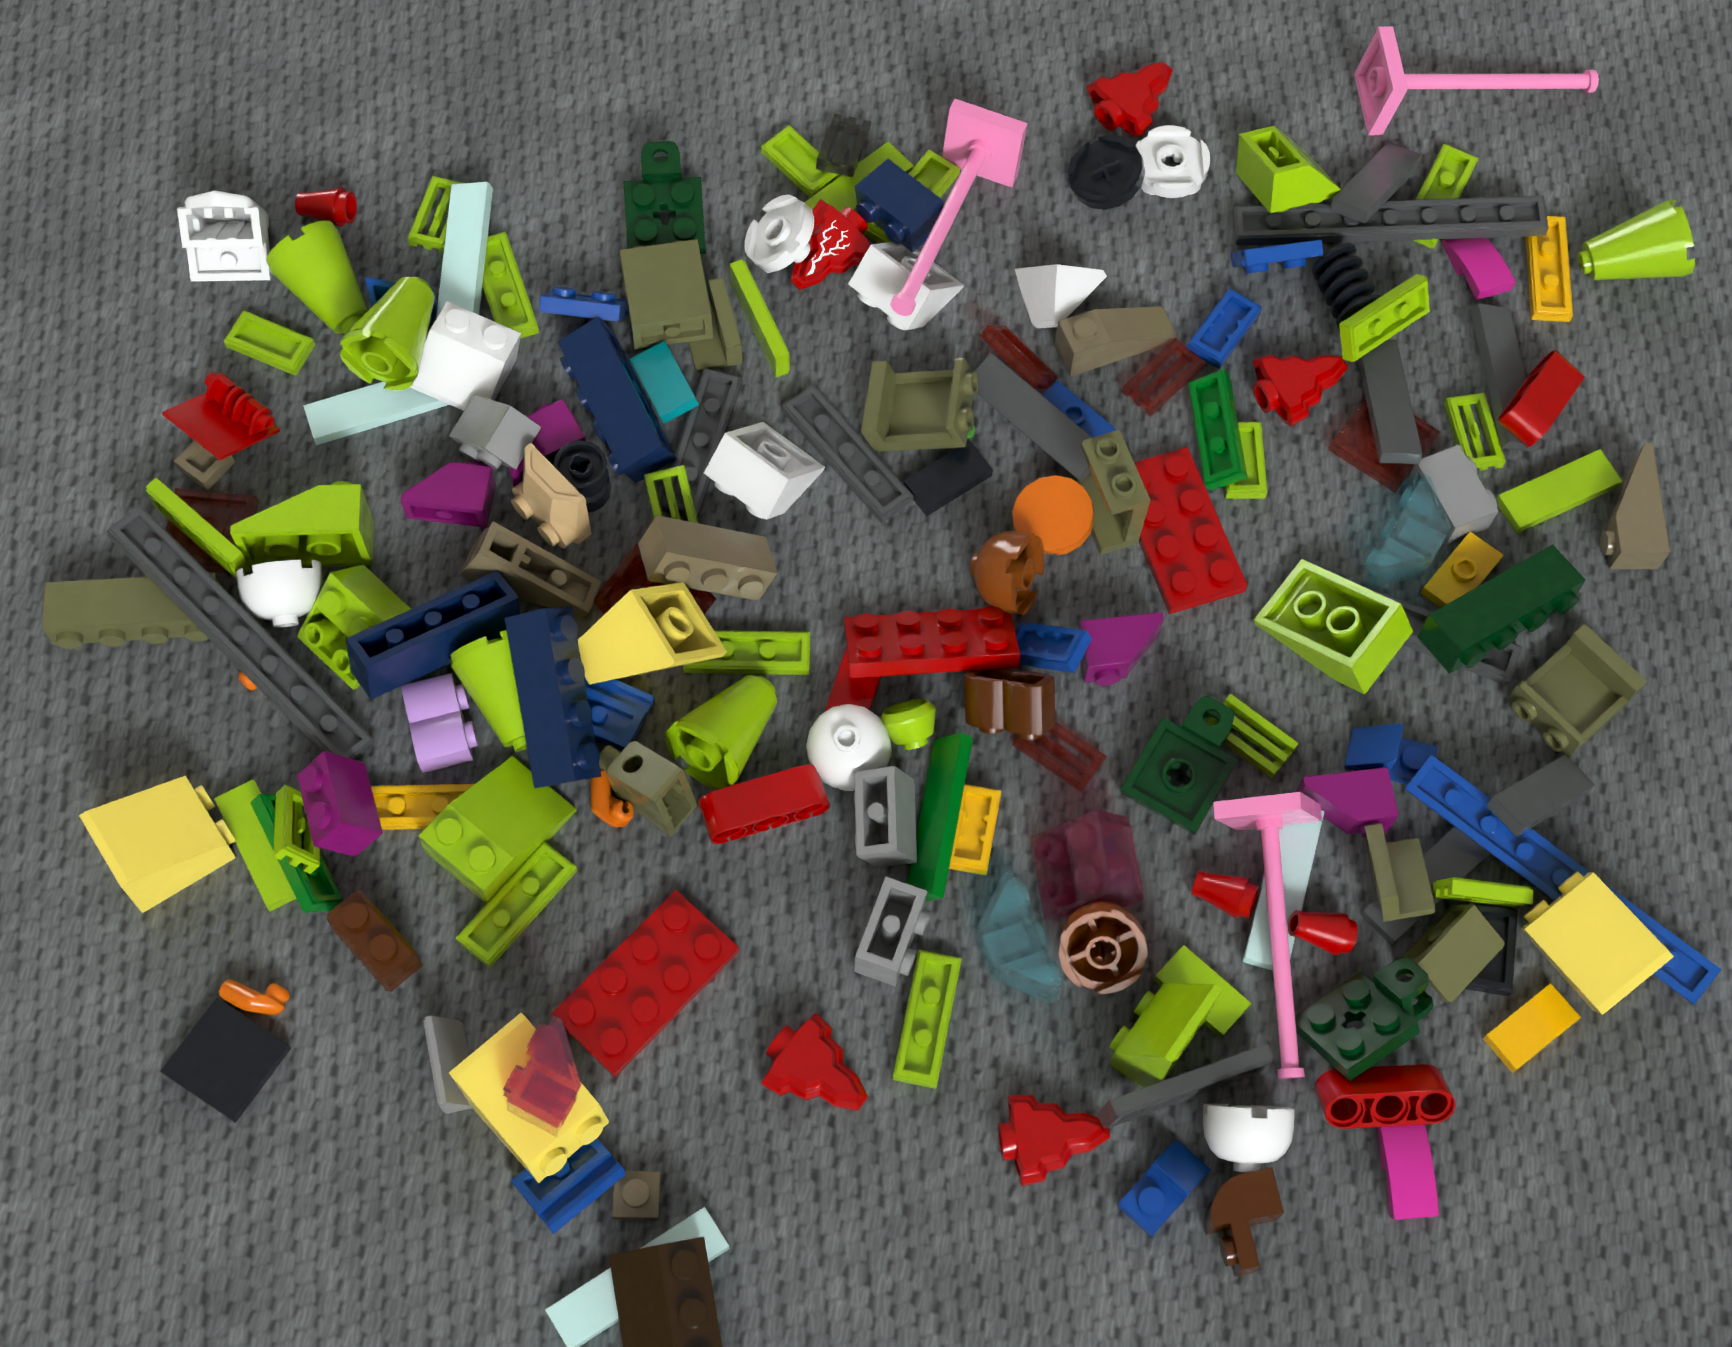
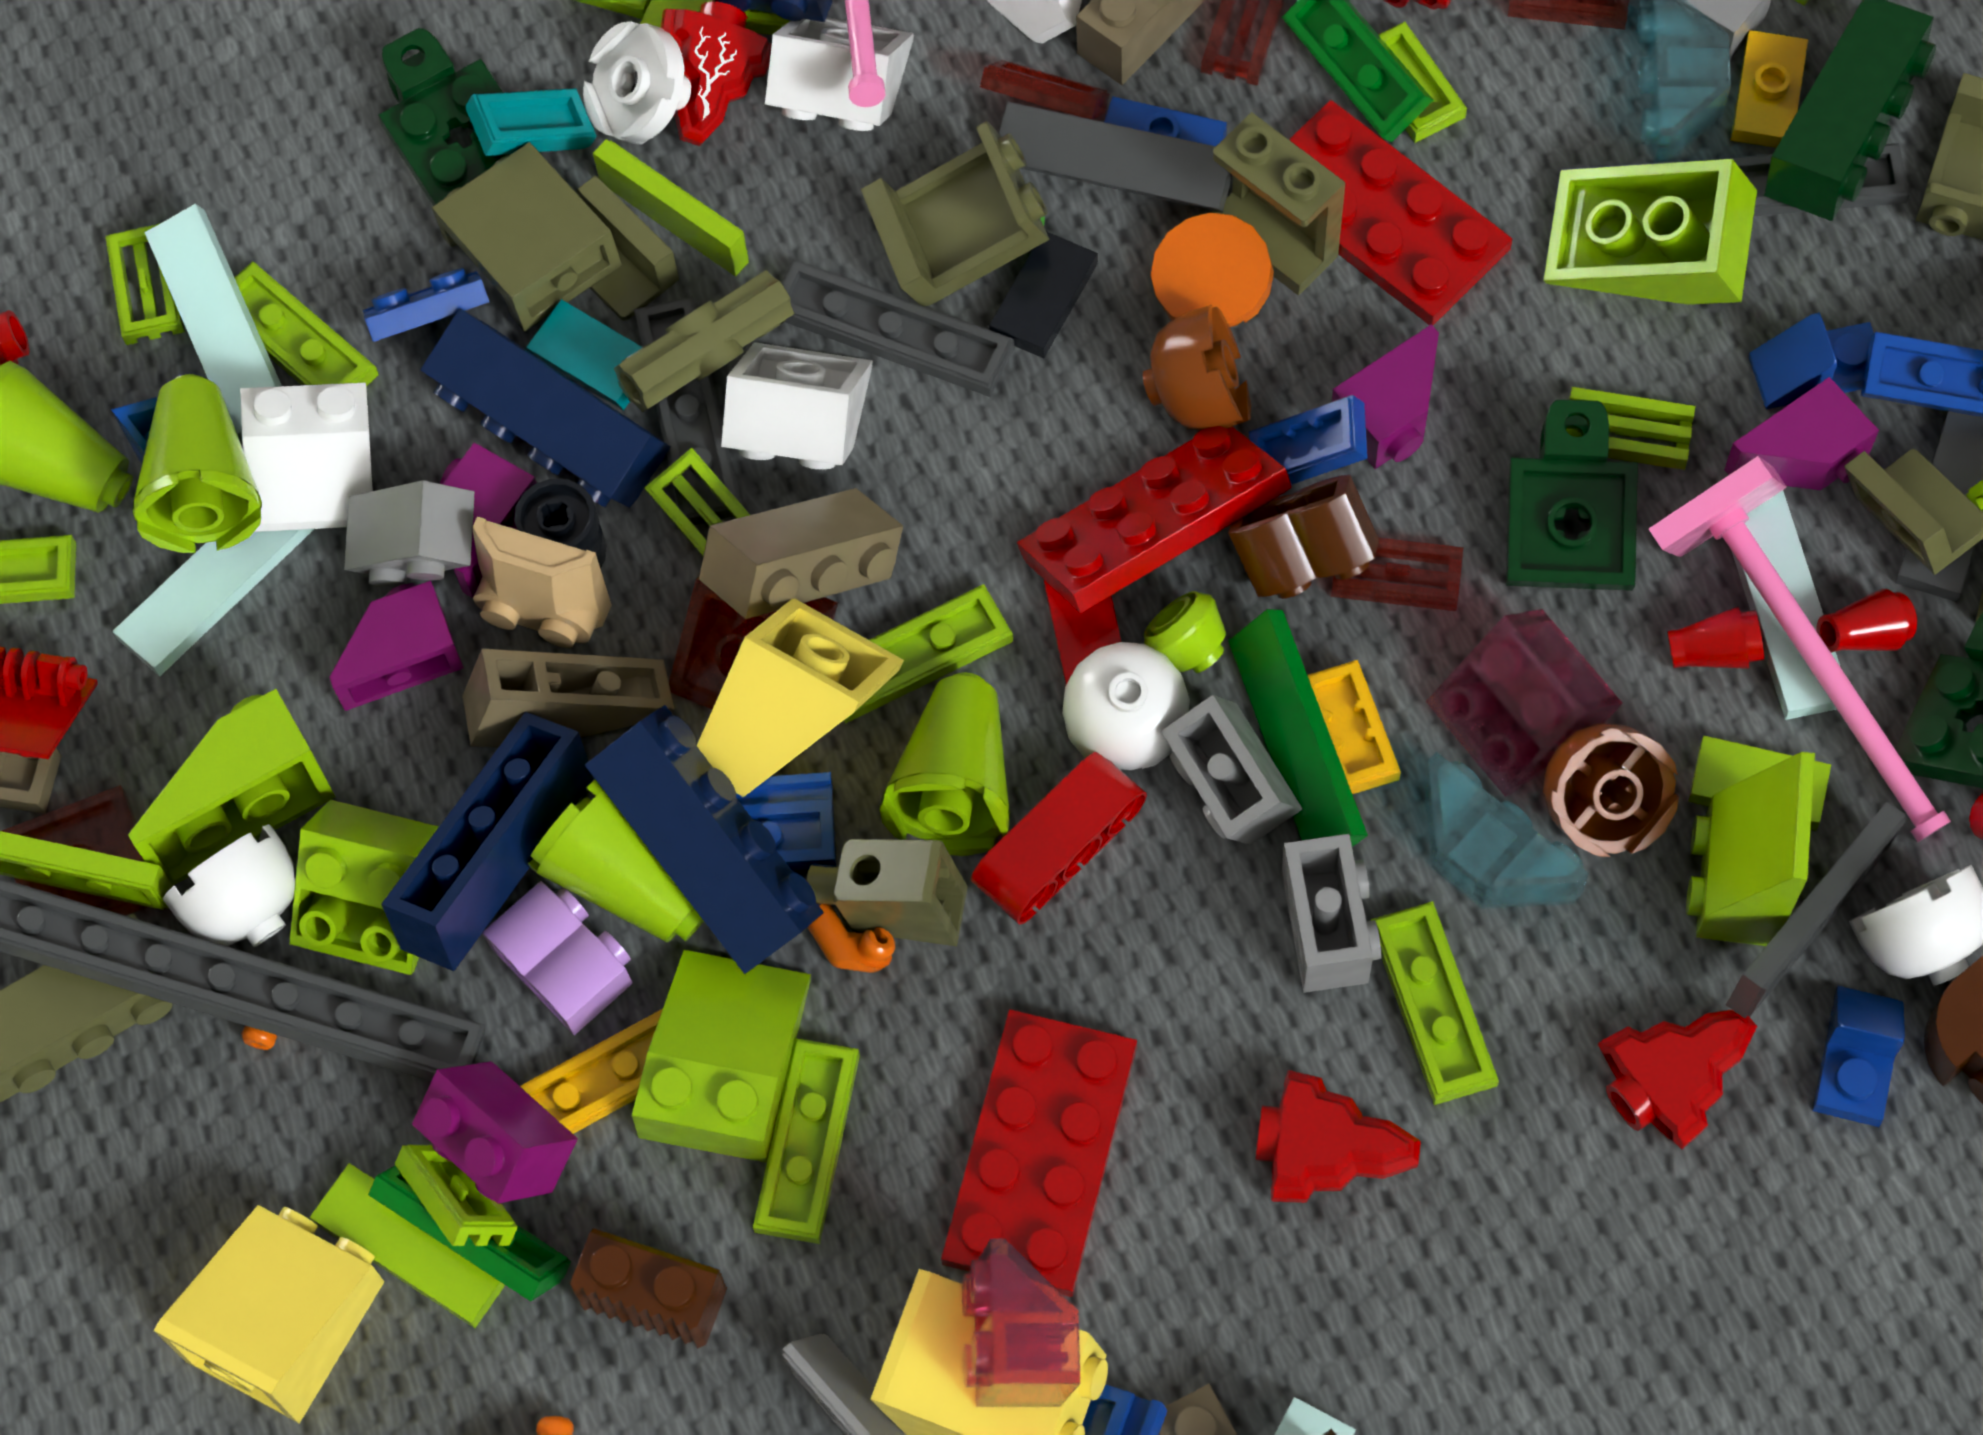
camera: 20 degrees left, 0 degrees up
(712, 227) = (543, 117): none -> teal tile
(728, 405) = (704, 340): none -> olive piece

